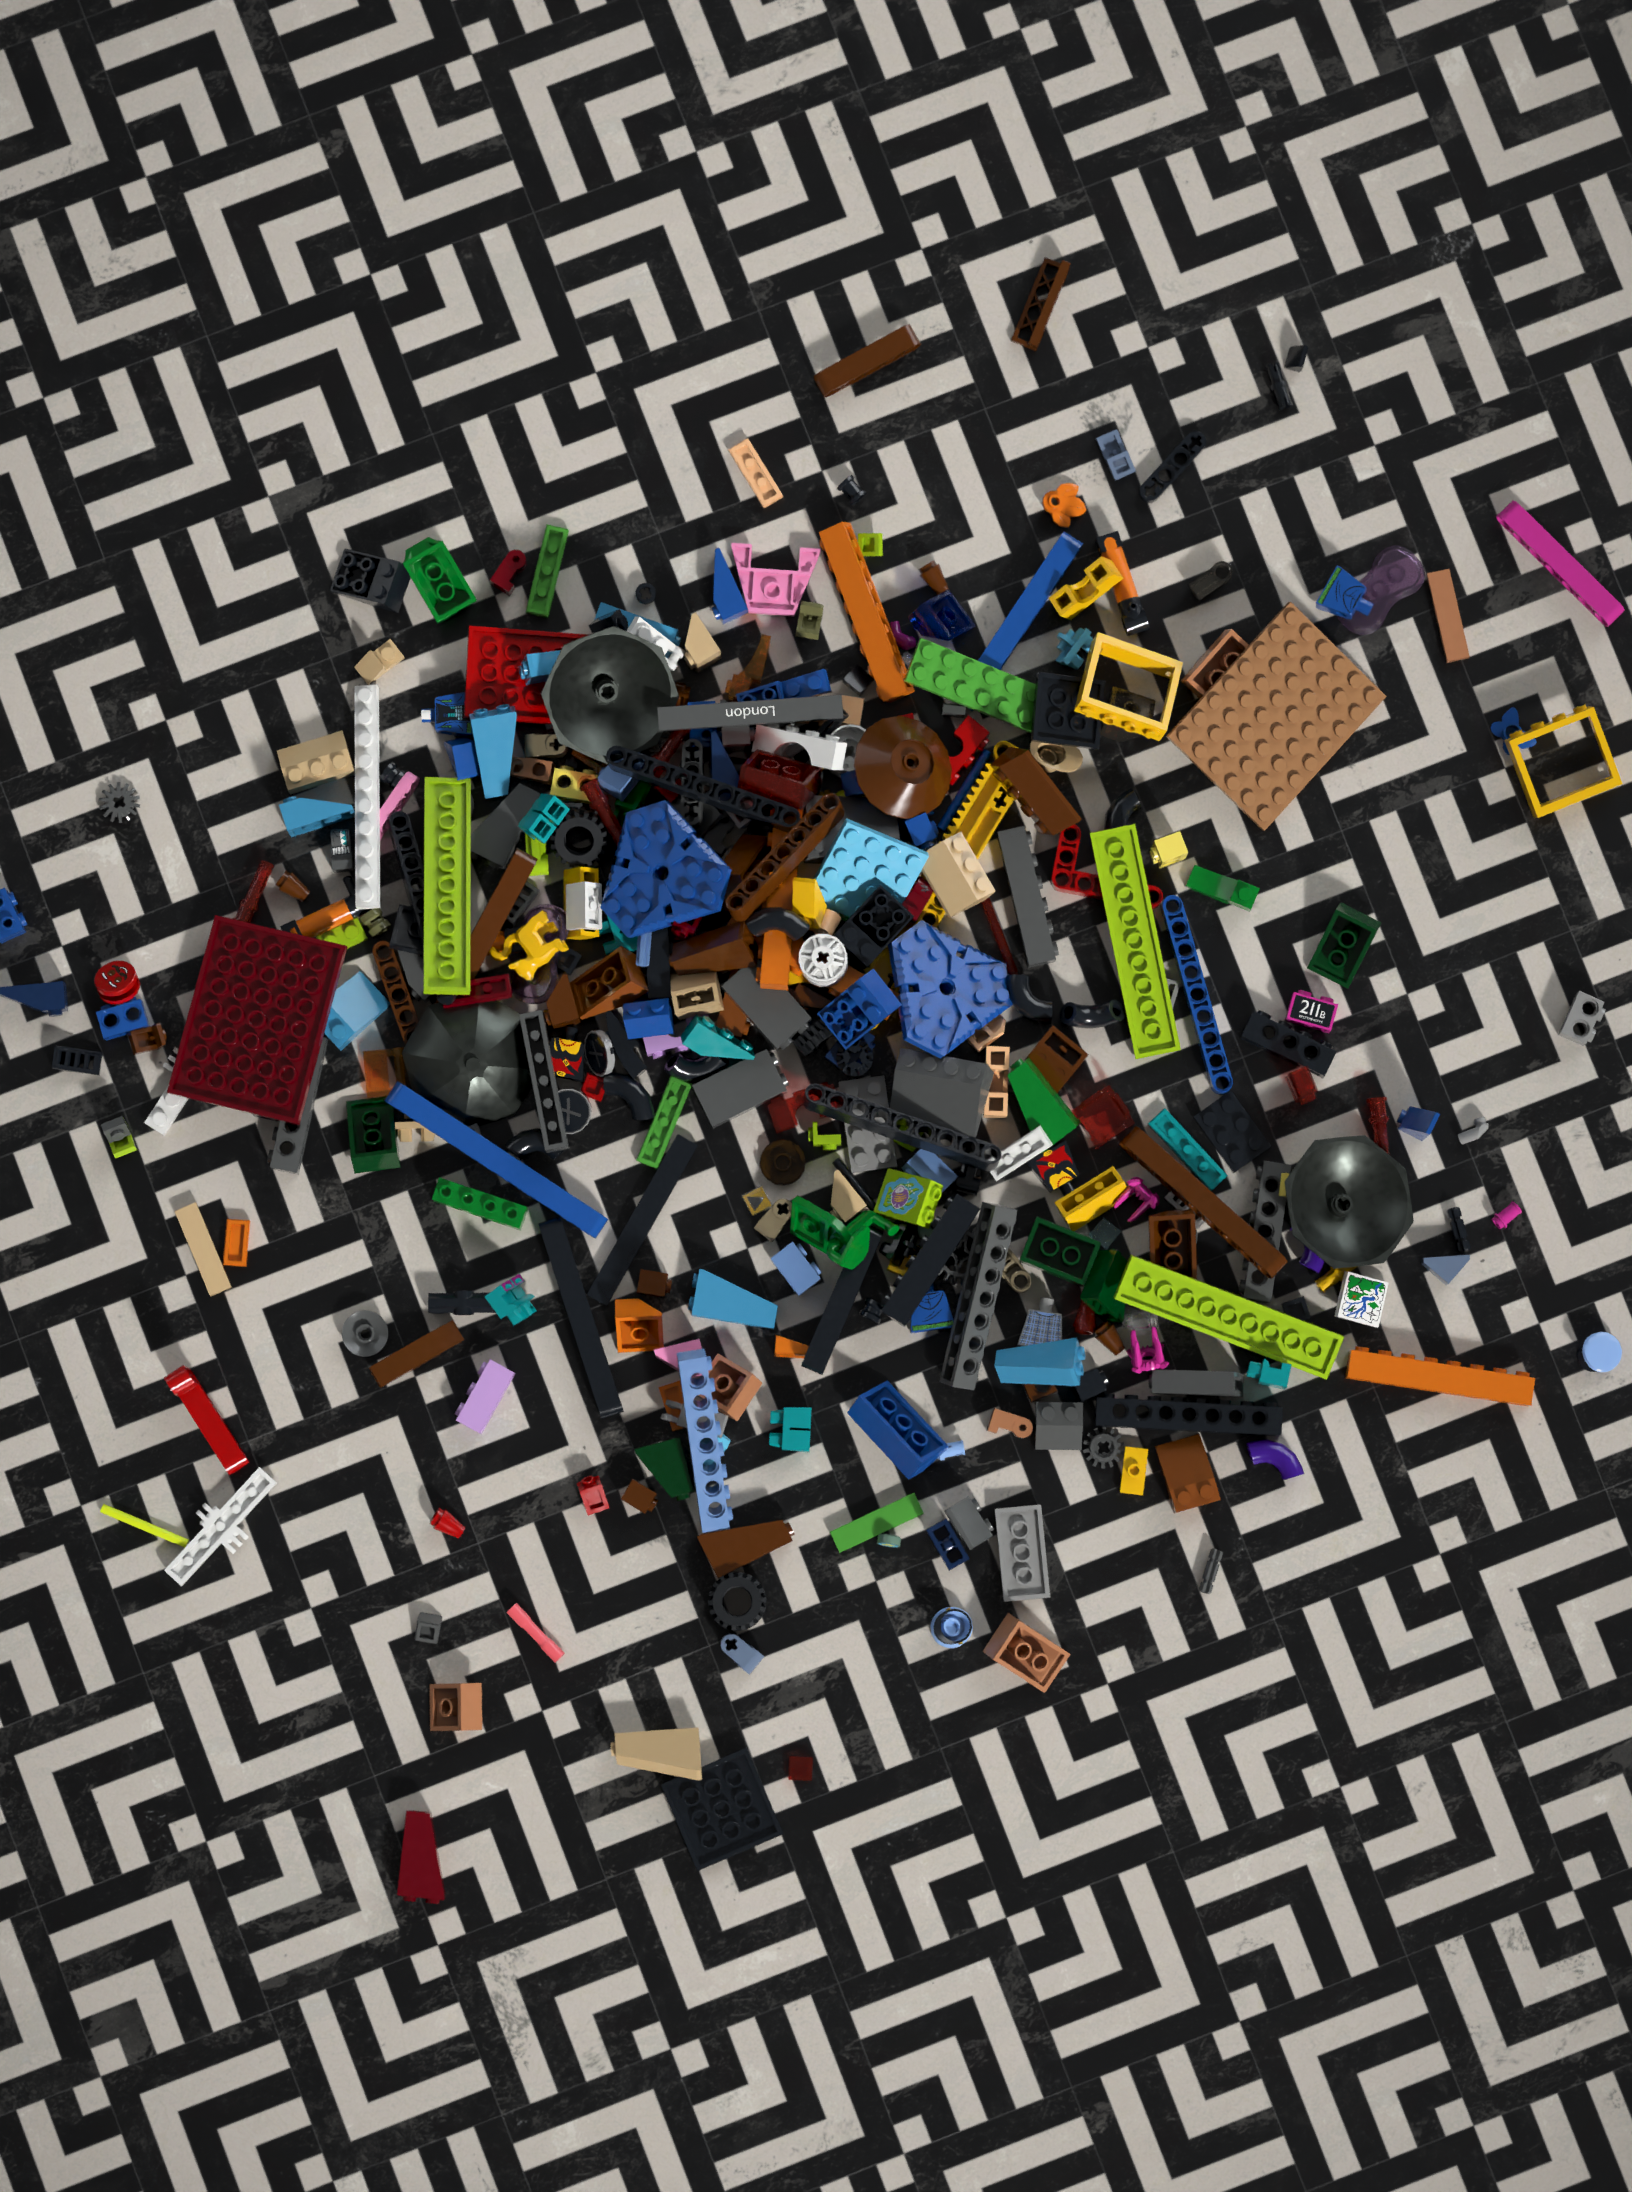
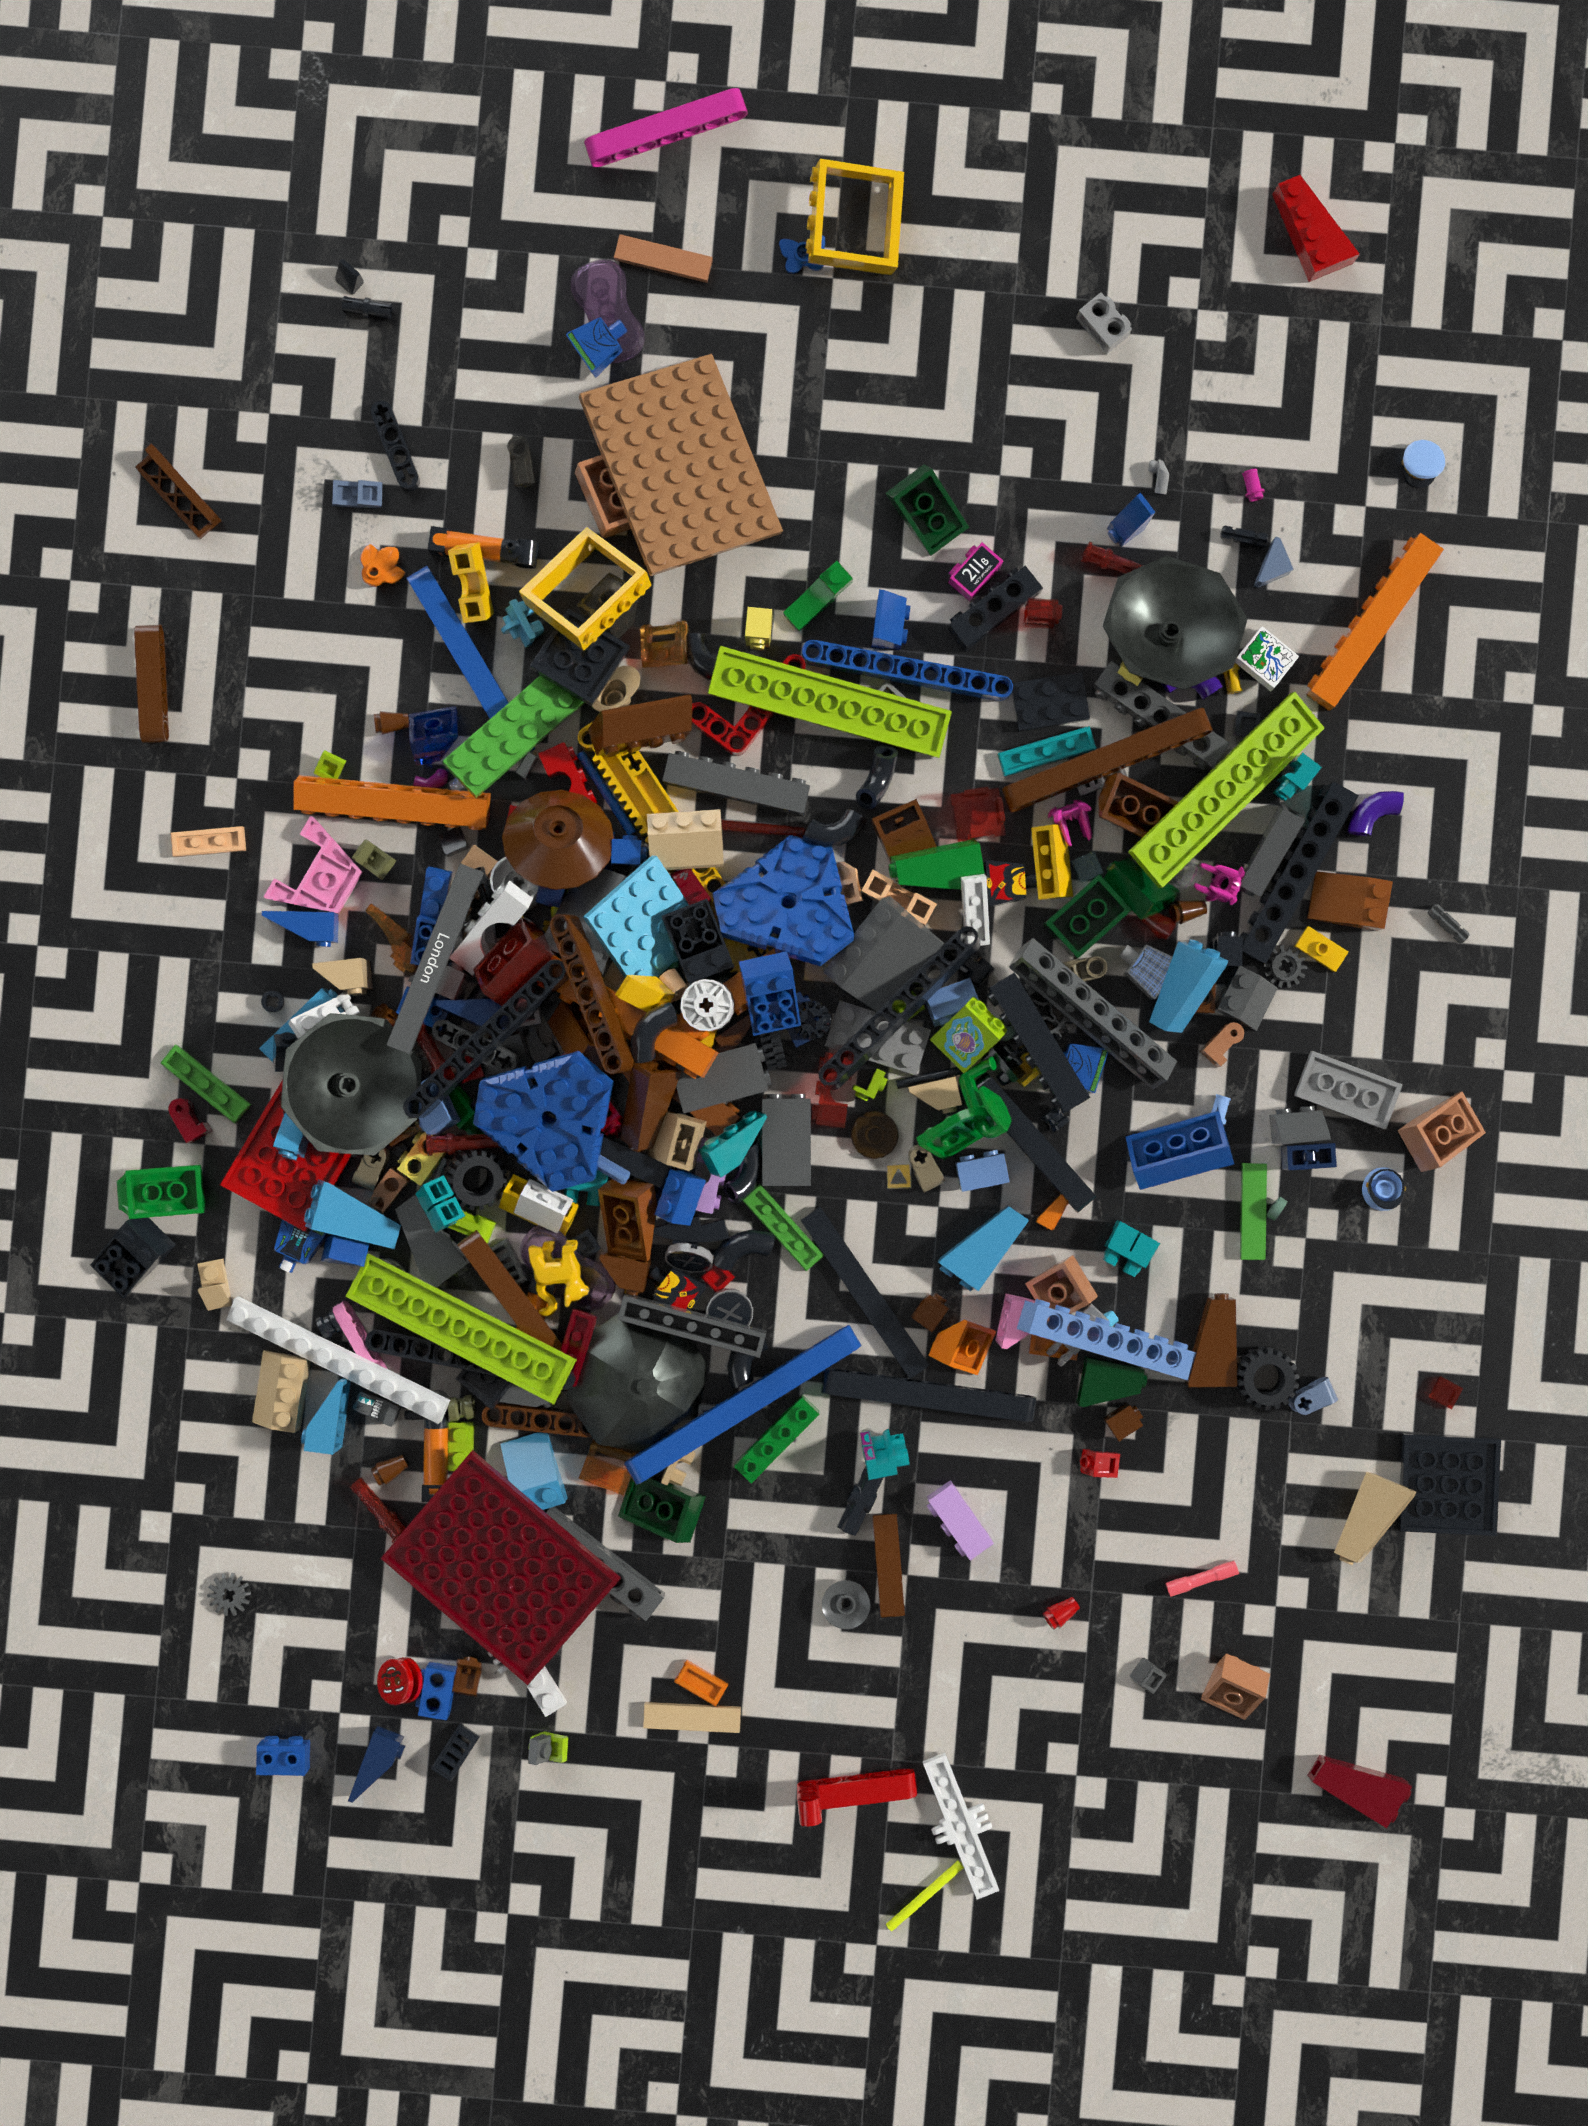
camera: 65 degrees left, 5 degrees up
(851, 490) = (268, 759): black bush -> none
(1108, 780) = (665, 652): none -> clear orange plate
(1231, 959) = (889, 621): none -> blue slope

